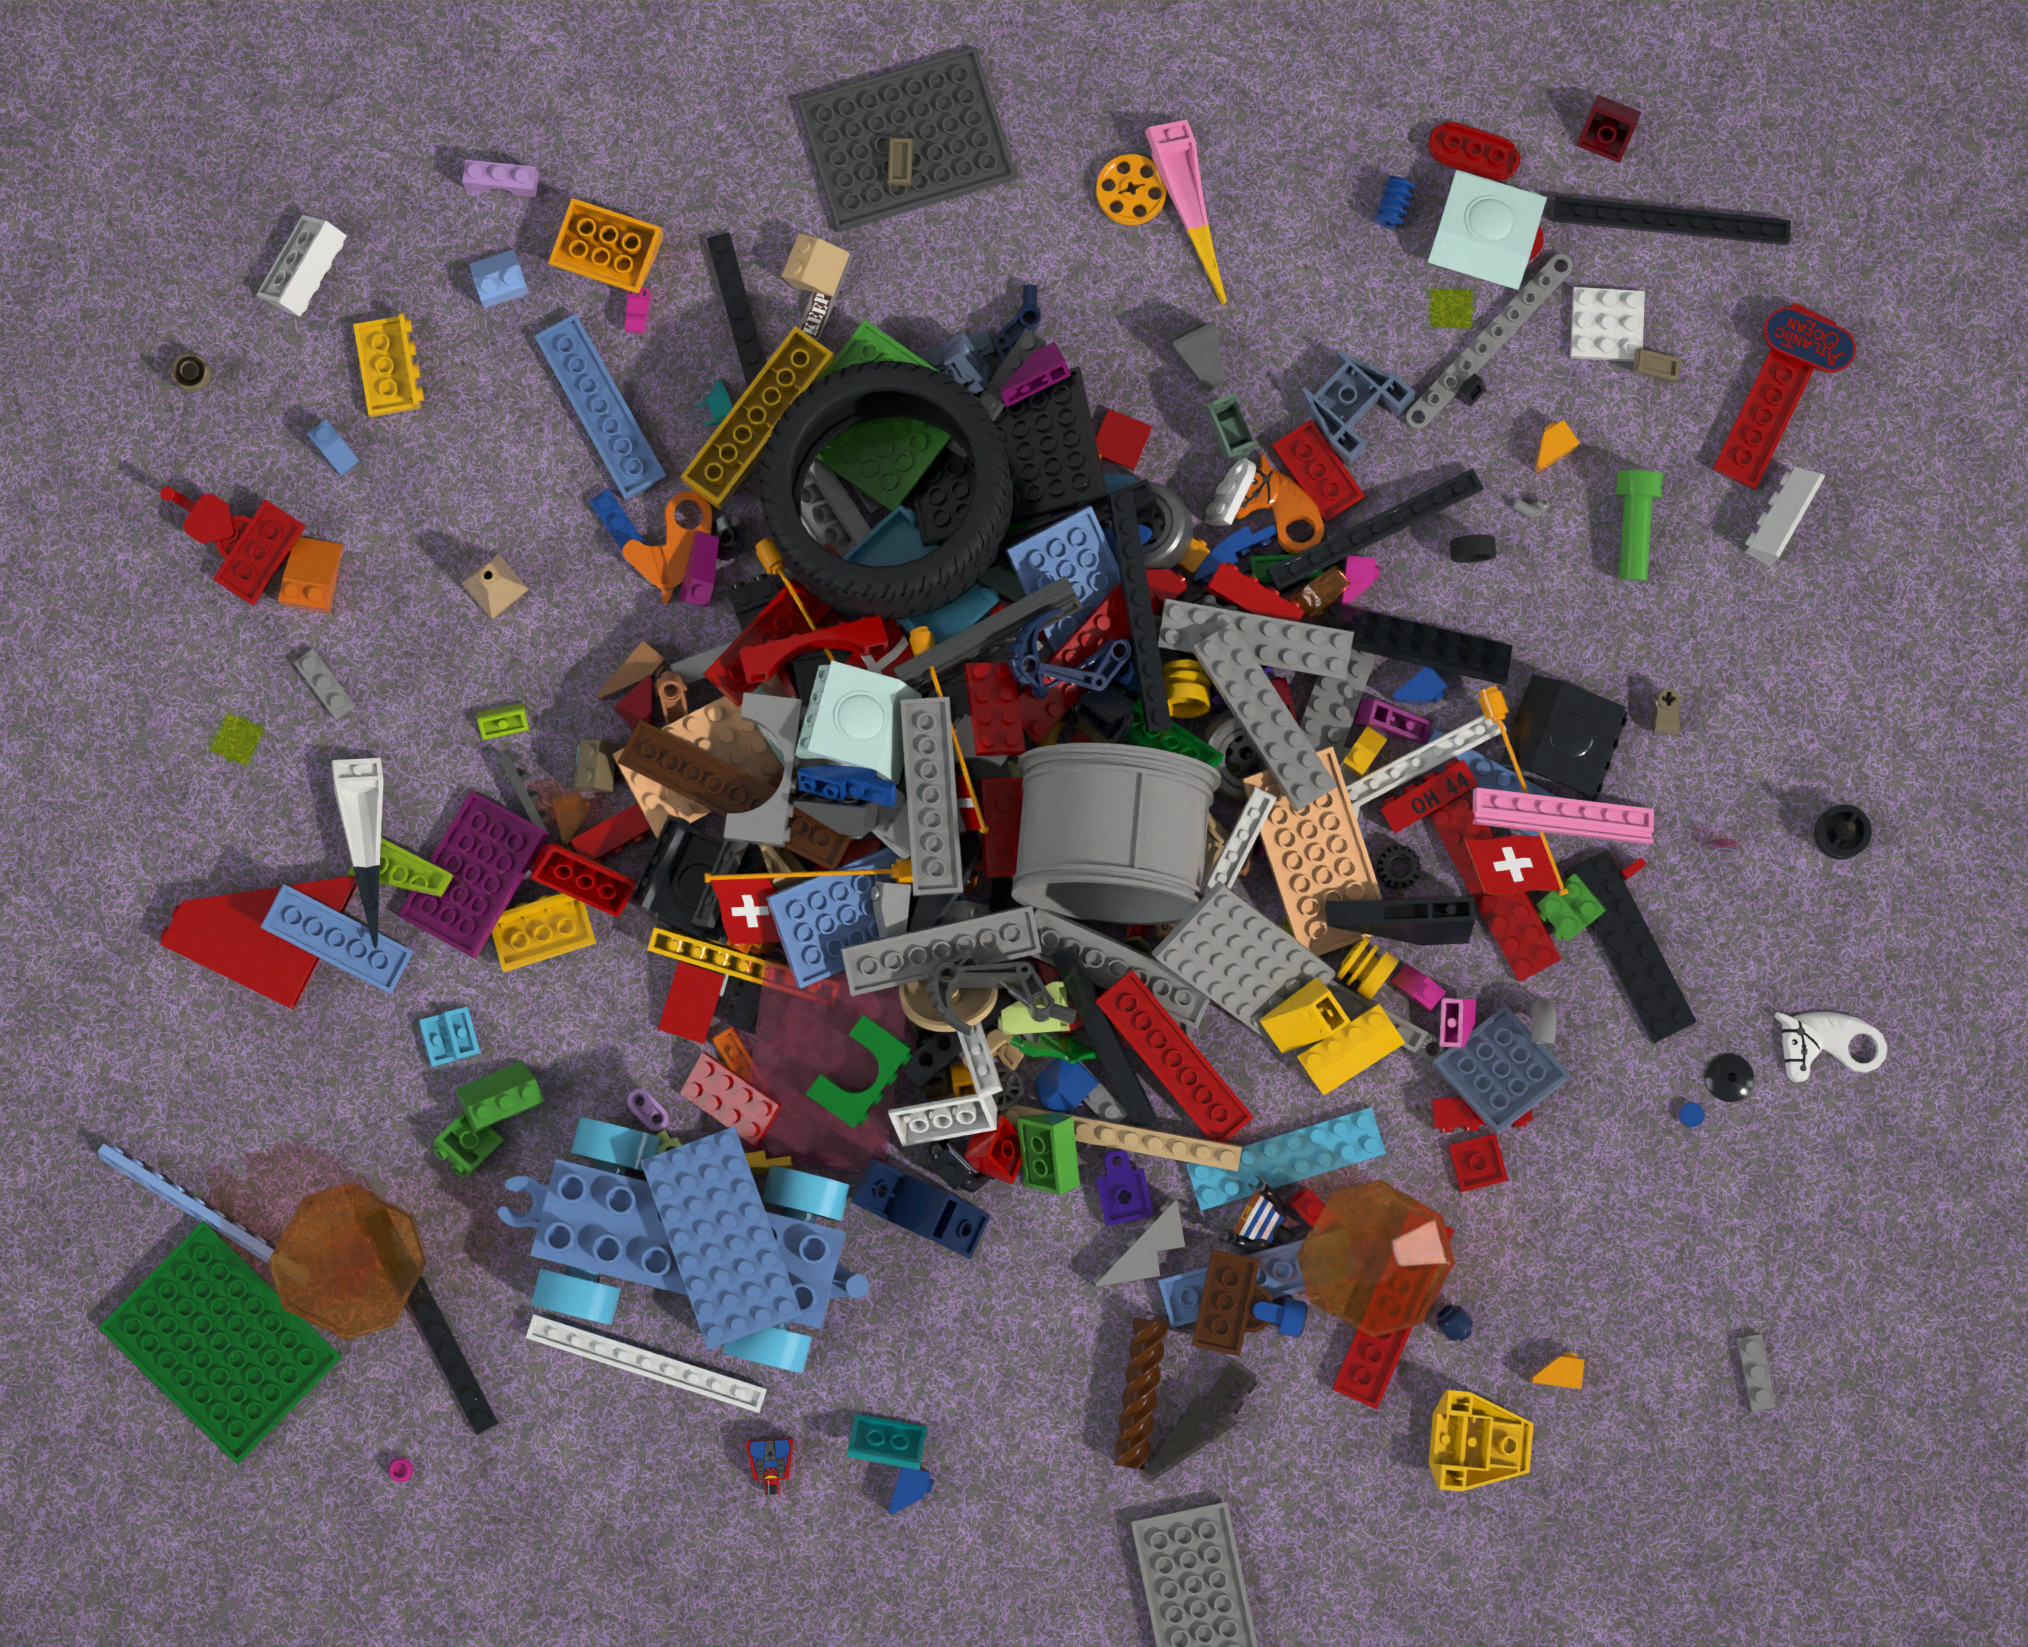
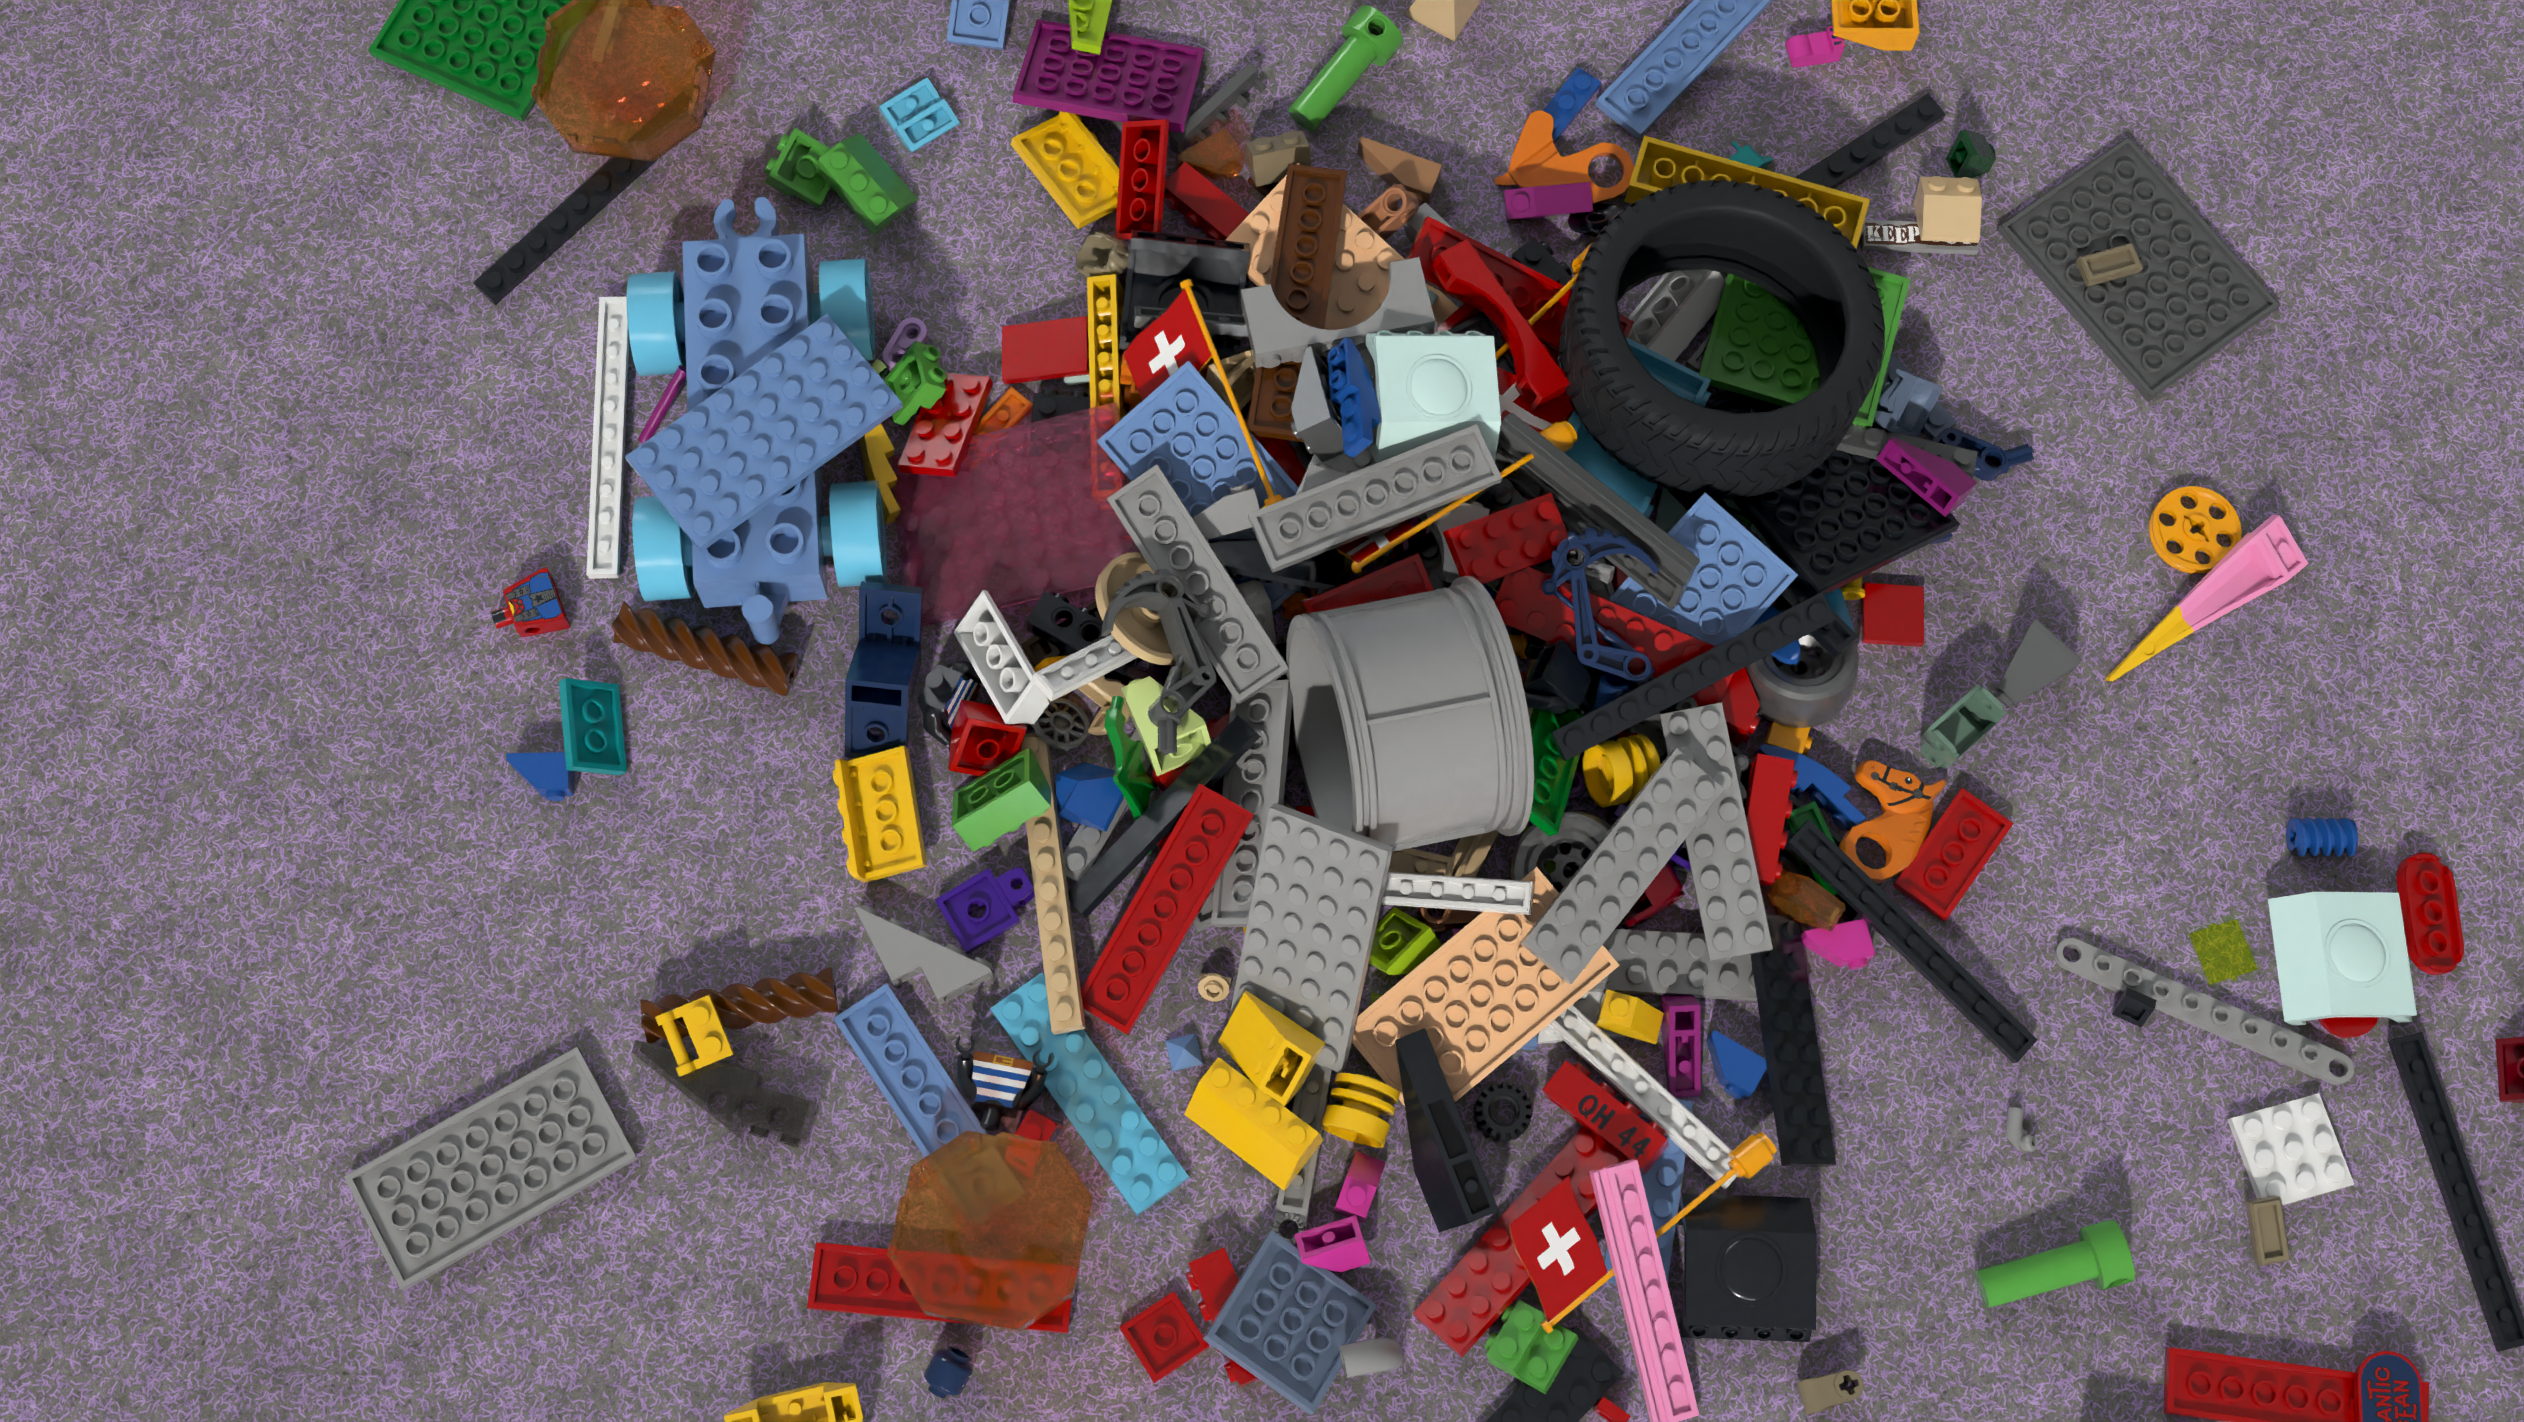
camera: 70 degrees right, 10 degrees down
(401, 1469) = (411, 218): dark pink plate -> none
(502, 721) = (1294, 59): lime slope -> none
(529, 684) = (1369, 40): none -> bright green piece
(631, 932) = (1102, 256): none -> dark tan hair
(638, 704) = (1366, 180): dark red slope -> none
(640, 1312) = (663, 404): none -> magenta bar
(688, 1111) = (916, 380): none -> bright green plate
(774, 228) = (1970, 155): none -> dark green slope
(849, 1341) = (705, 650): none -> reddish brown piece
(852, 1104) = (1055, 571): green arch -> none
(1027, 1245) = (880, 814): none -> yellow bracket
(1155, 1423) = (705, 1031): none -> yellow plate
(1230, 493) = (1881, 753): white plate -> none
(1237, 1042) = (1214, 986): none -> tan plate
(1237, 1305) = (883, 1086): reddish brown plate -> none
(1259, 891) = (1401, 943): none -> lime slope
(1278, 1080) = (1184, 1052): none -> medium blue slope
(1348, 398) = (2060, 859): sand blue wedge -> none
(1473, 548) = (1937, 1070): black tyre -> none
(1554, 444) = (2110, 1133): light orange slope -> none

